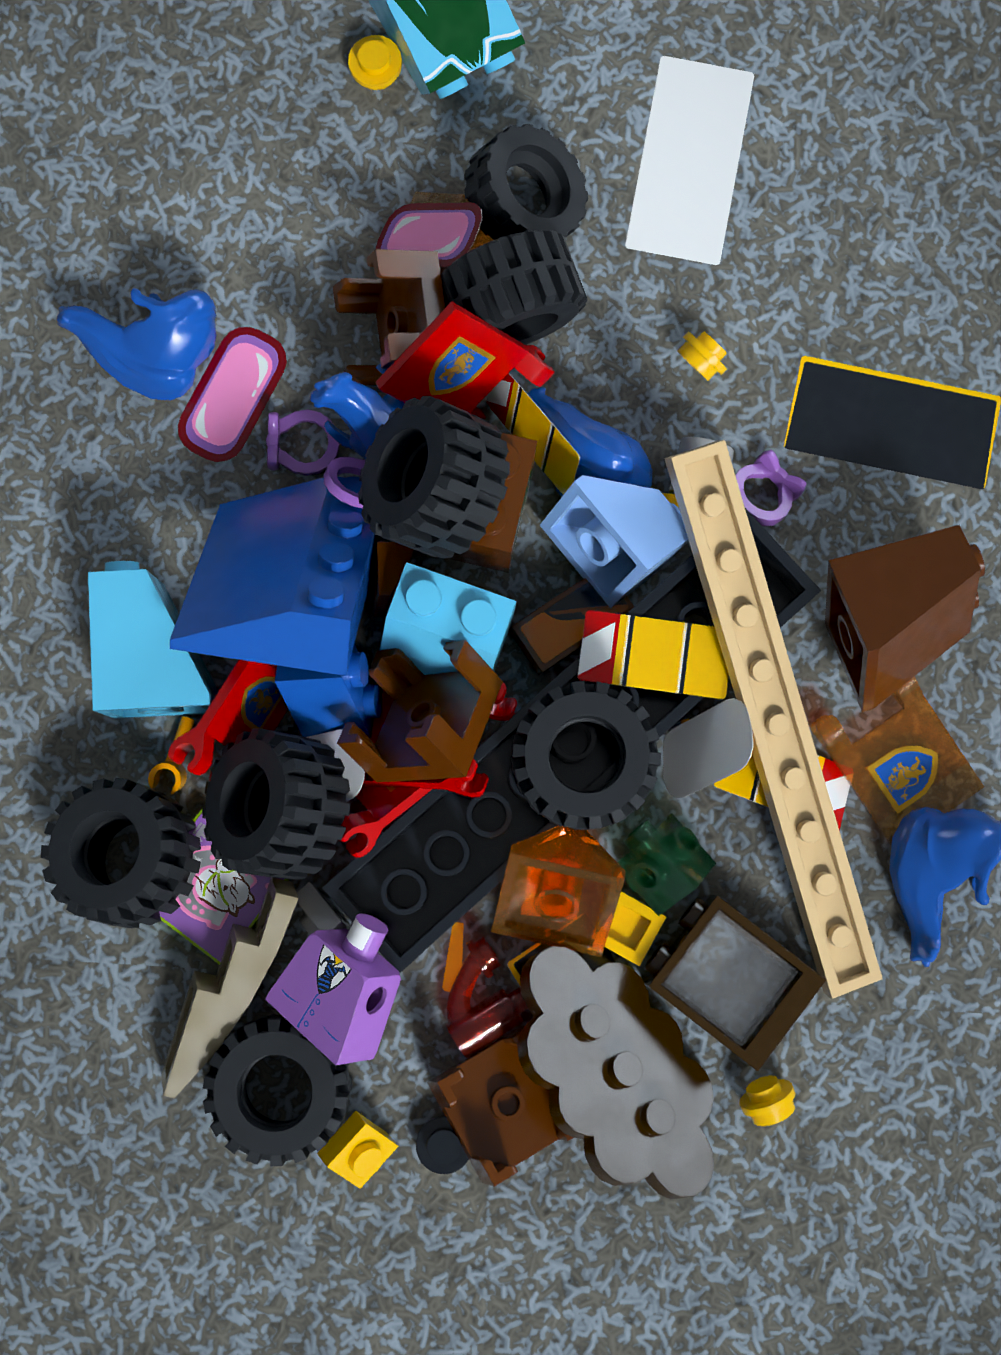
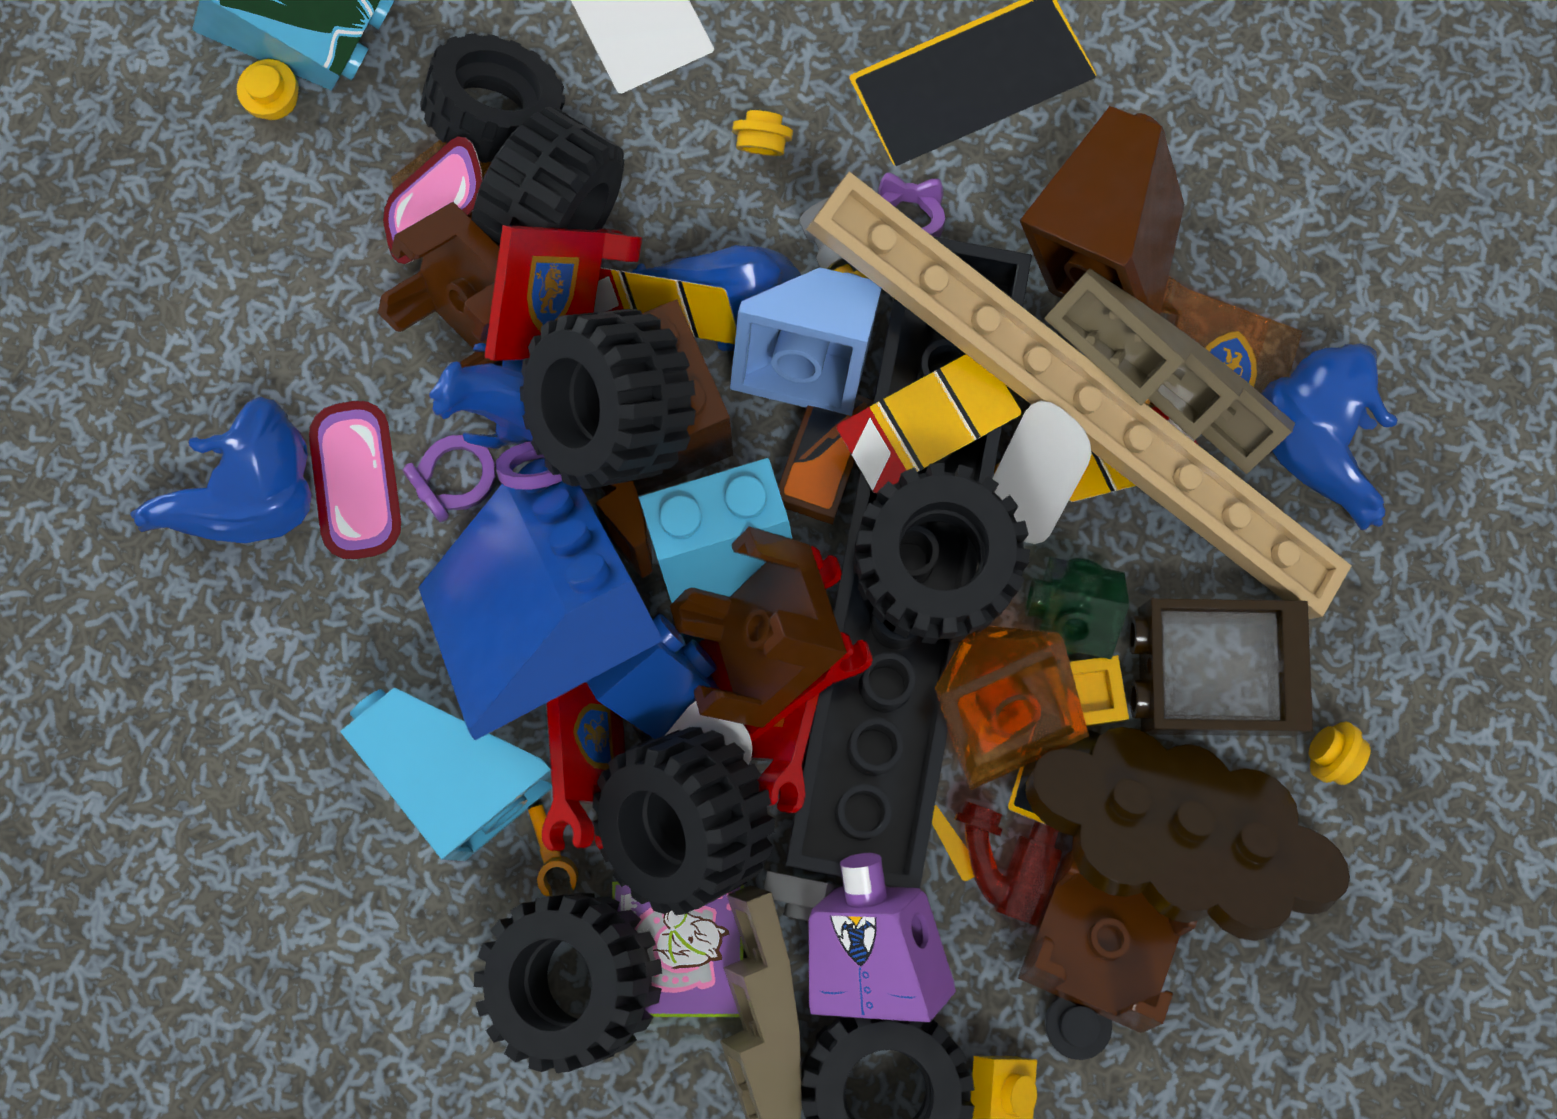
camera: 30 degrees left, 5 degrees down
(856, 749) = (1170, 369): none -> dark tan slope

